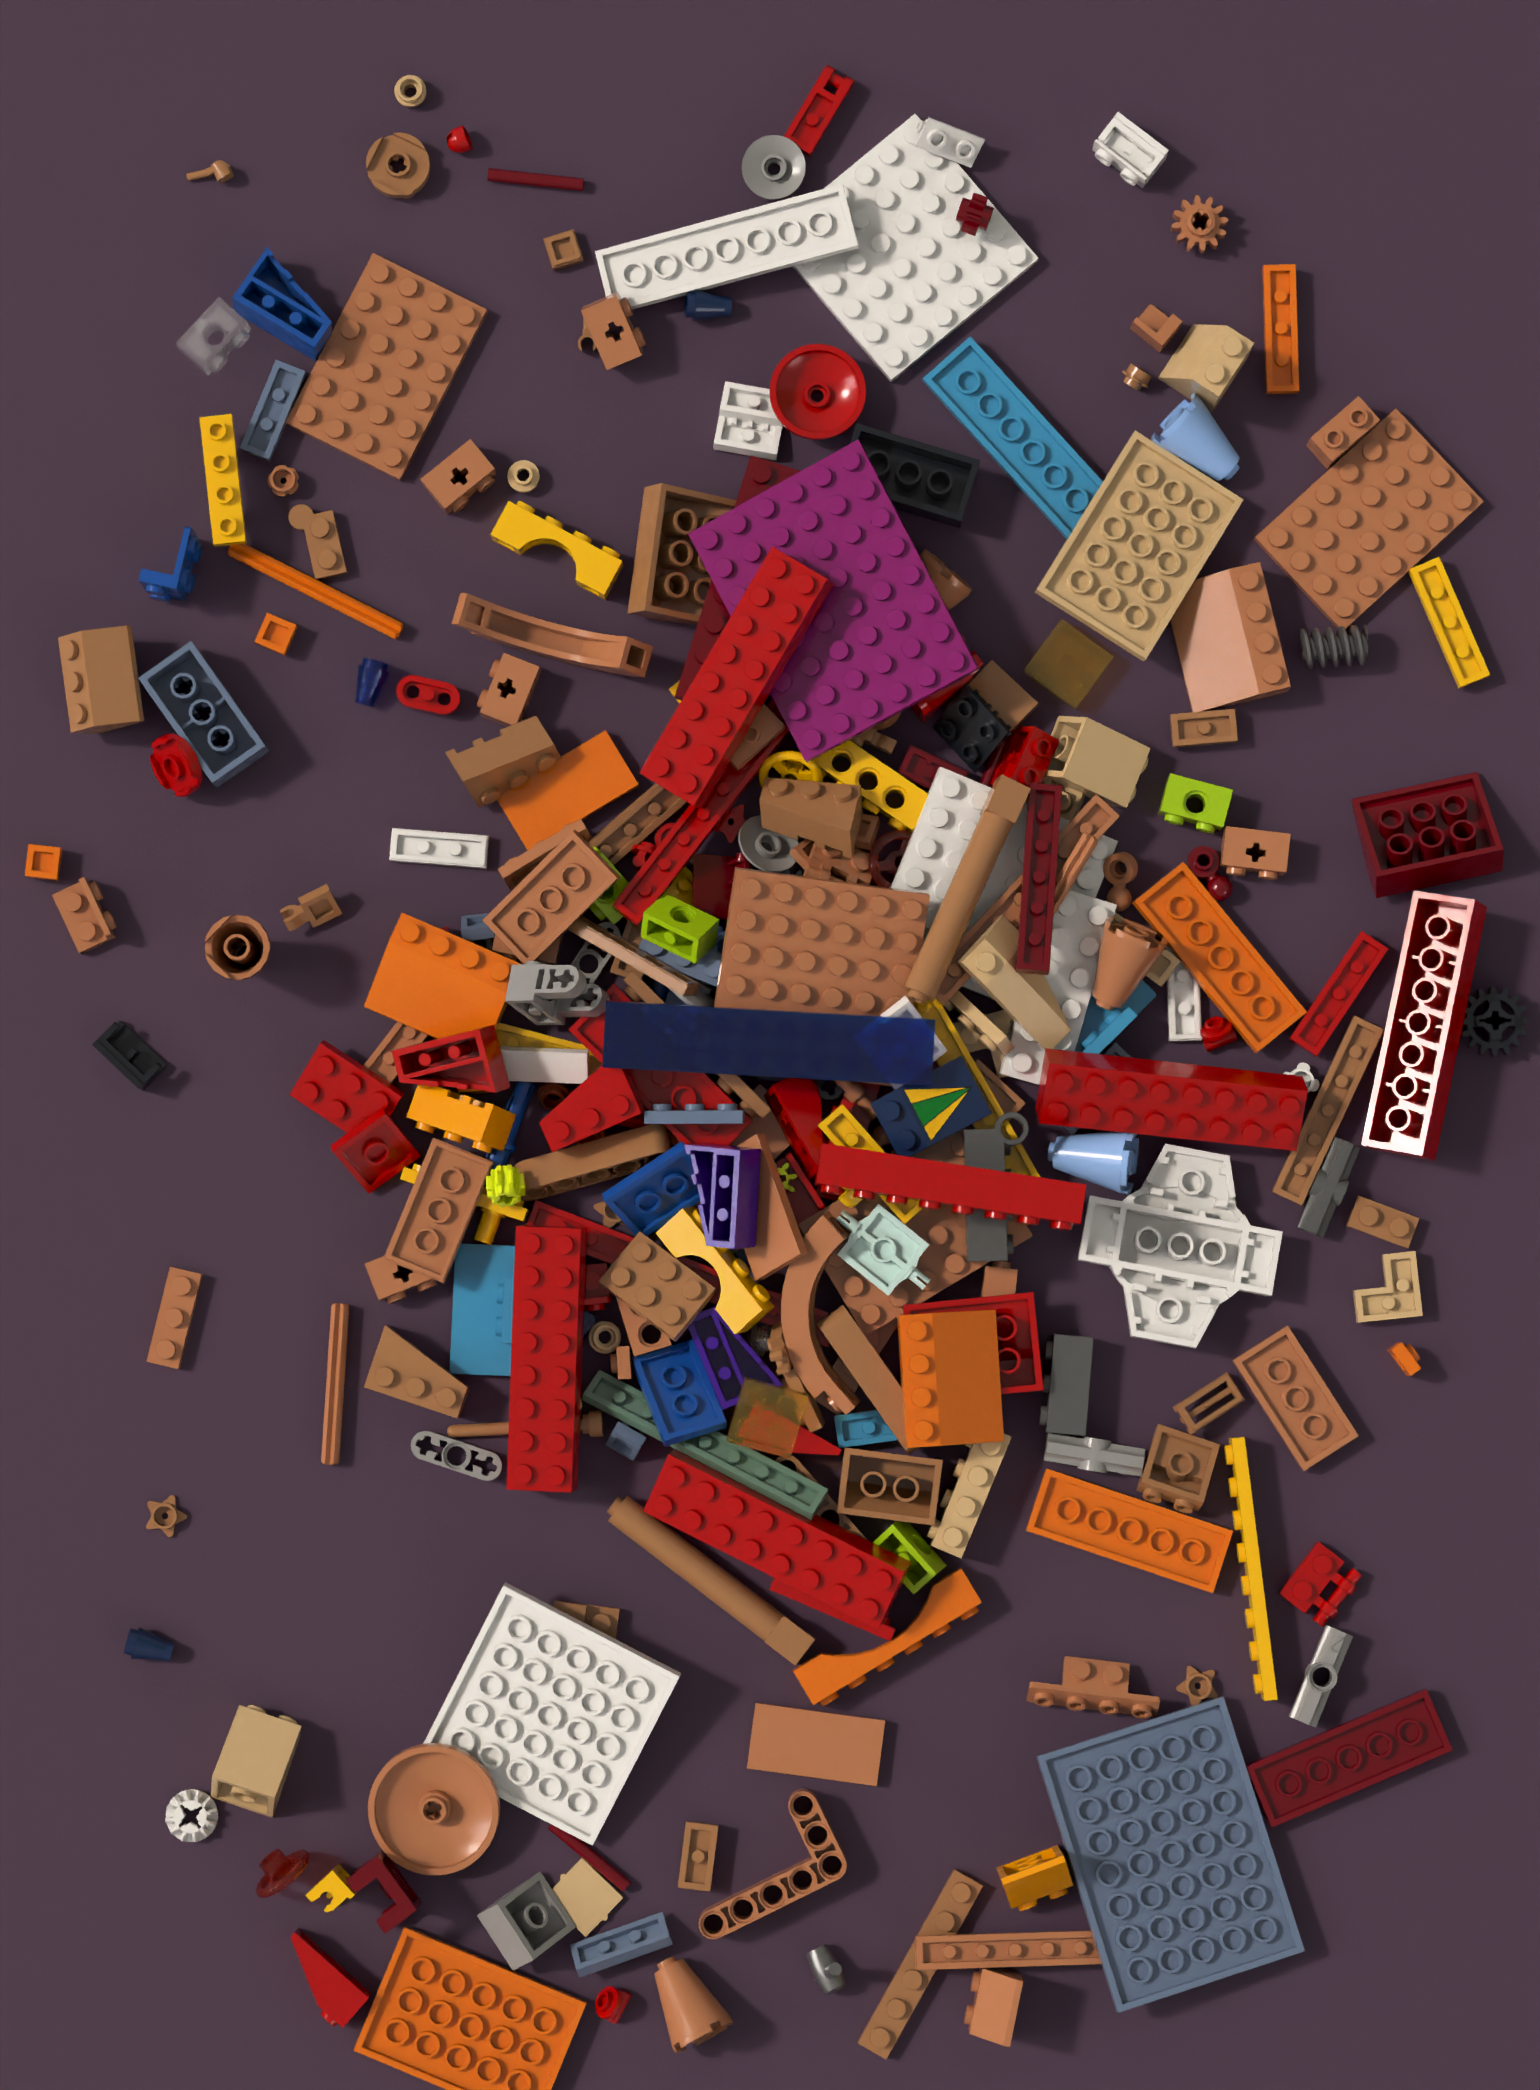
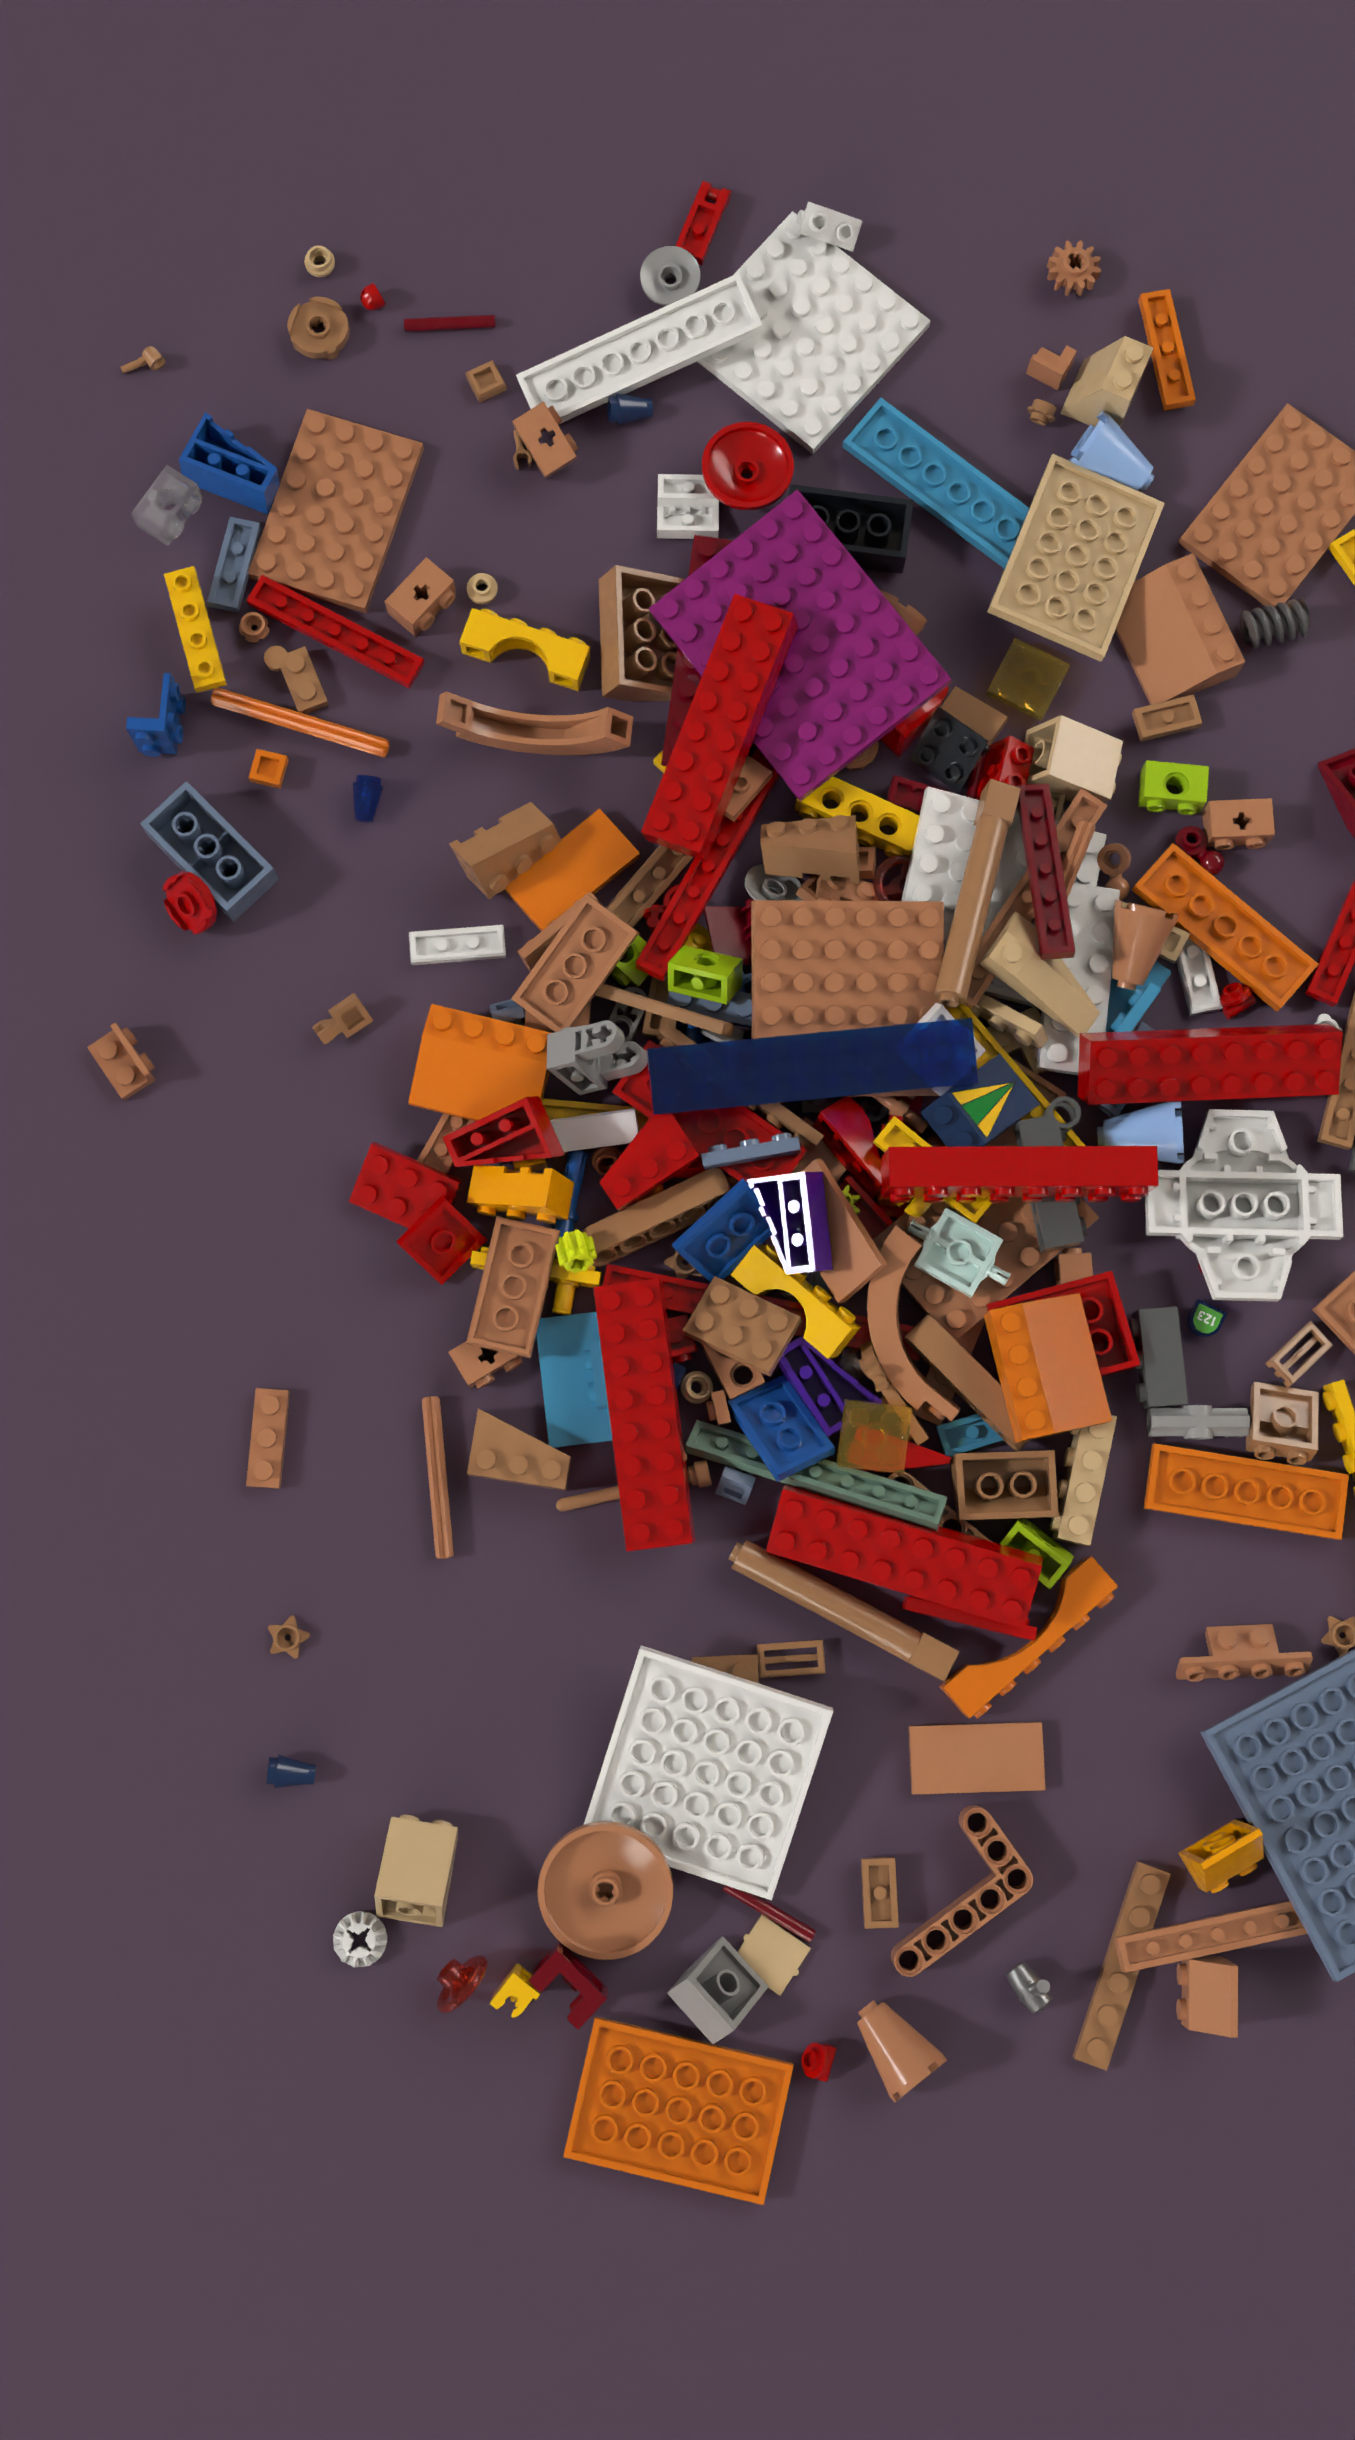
camera: 15 degrees left, 5 degrees down
(43, 862) = (74, 1017): orange plate -> none
(101, 679) = (104, 833): medium nougat slope -> none
(130, 1055) = (185, 1188): black hinge -> none
(228, 939) = (274, 1058): nougat cone -> none
(331, 1984) = (532, 2093): red slope -> none
(366, 499) = (335, 631): none -> red plate
(429, 694) = (425, 800): red plate -> none
(477, 1470) = (547, 1517): light grey beam -> none
(523, 679) = (505, 768): nougat brick -> none
(621, 1944) = (817, 1998): sand blue plate -> none
(680, 1620) = (762, 1660): none -> medium nougat tile
(732, 831) = (737, 883): red plate -> none
(790, 766) = (781, 807): yellow piece -> none
(876, 740) = (854, 775): medium nougat plate -> none
(974, 214) = (866, 283): dark red gear -> none
(1123, 1353) = (1205, 1319): none -> tile
(1129, 151) = (997, 212): white hinge -> none
(1342, 432) = (1243, 430): nougat brick -> none

